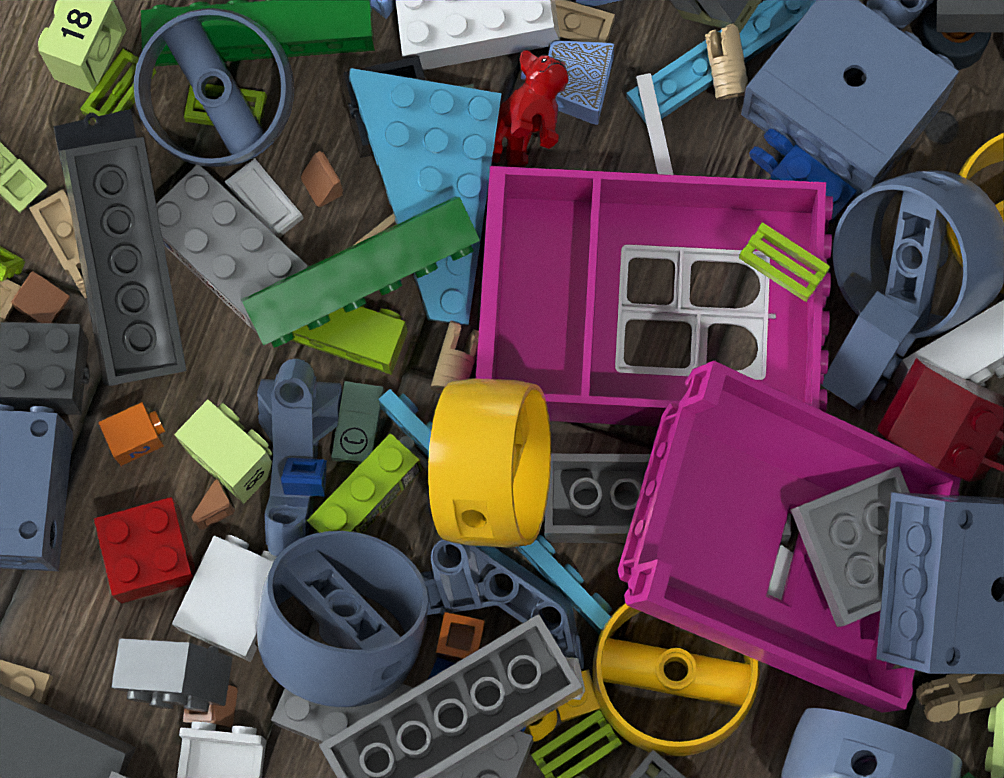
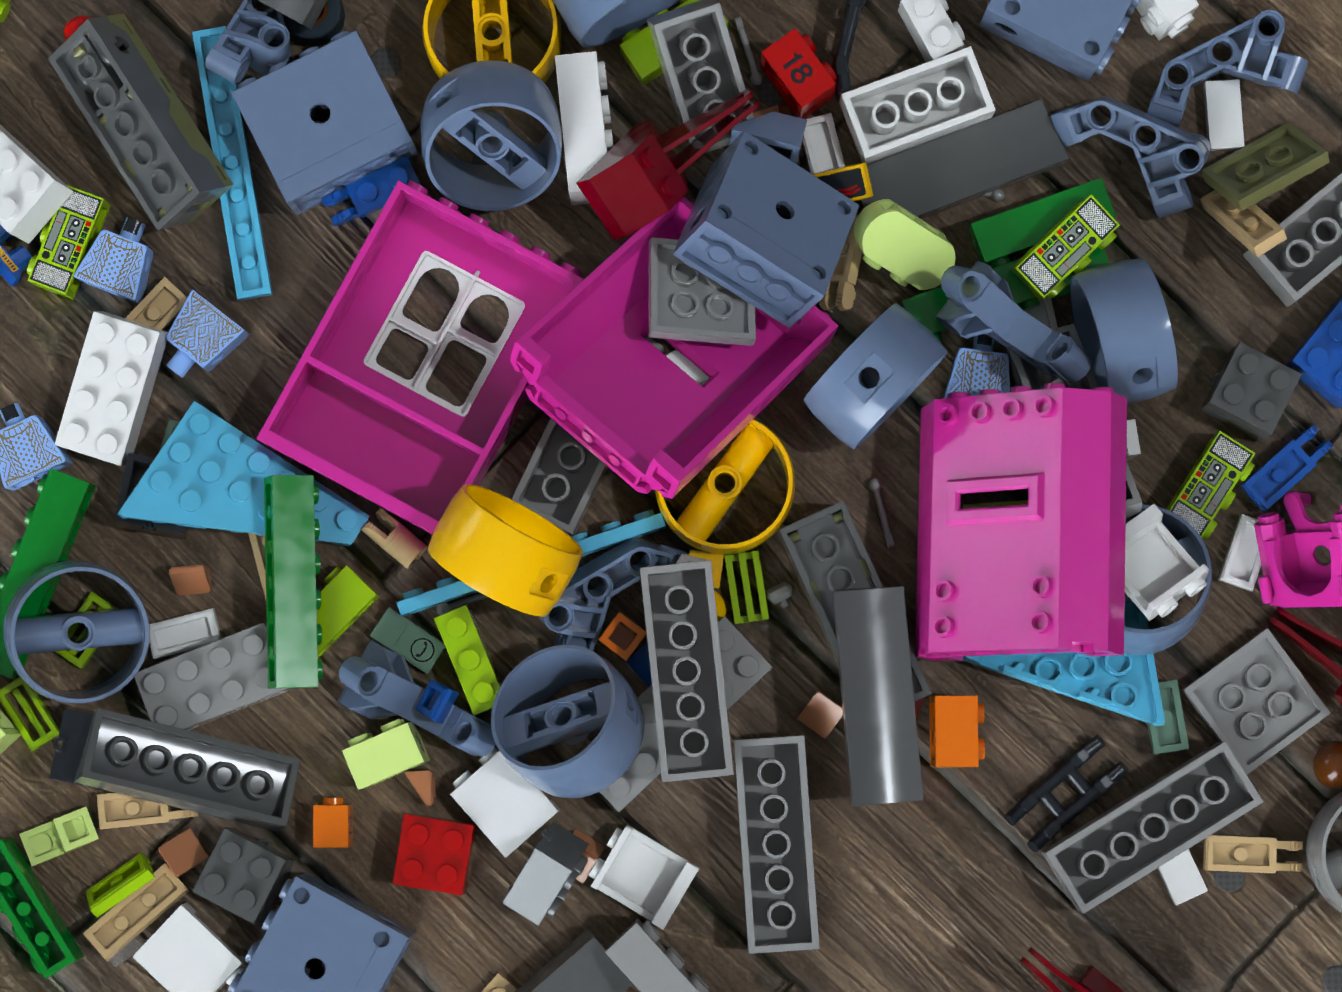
camera: 65 degrees left, 10 degrees up
(531, 108) = (217, 382): red animal -> none
(654, 124) = (280, 290): white sticker -> none
(727, 62) = (253, 207): tan hinge -> none
(793, 250) = (441, 234): lime tile -> none
(871, 351) = (549, 212): sand blue brick -> none

